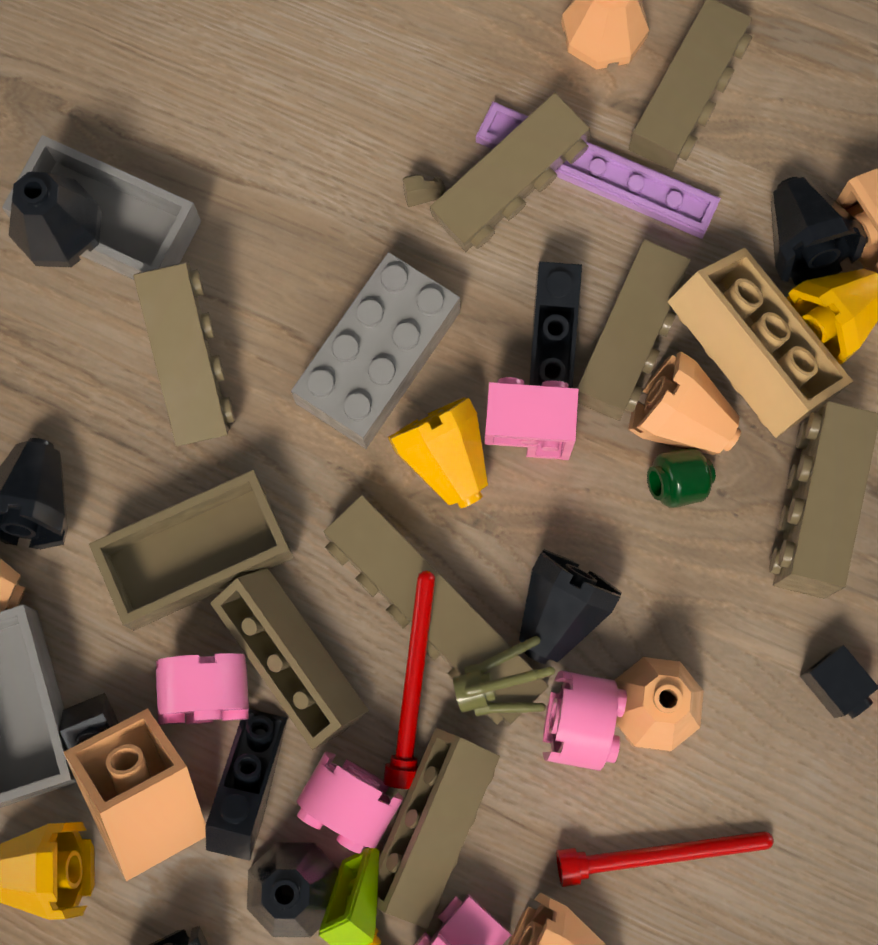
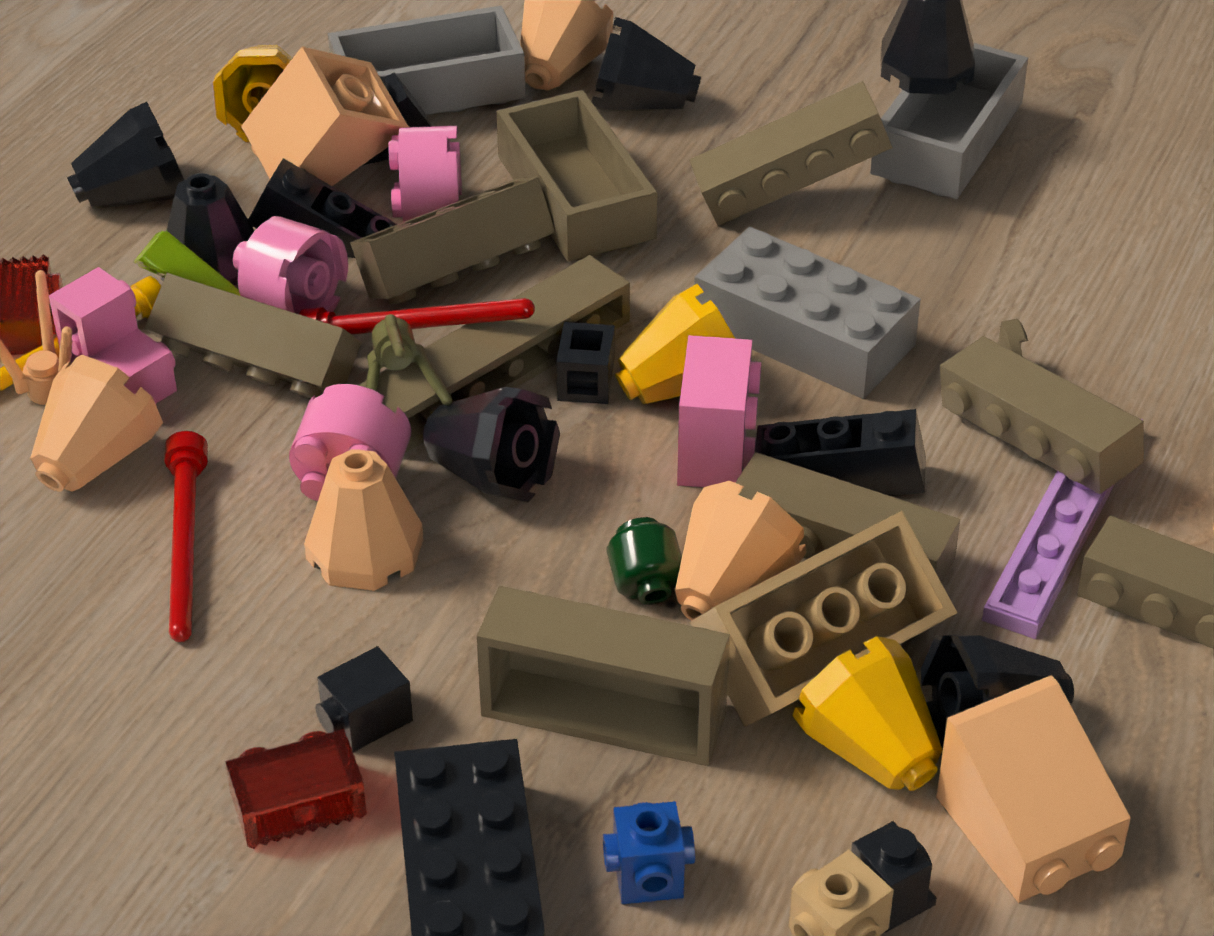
camera: 90 degrees right, 35 degrees down
(457, 522) = (585, 362): none -> black brick

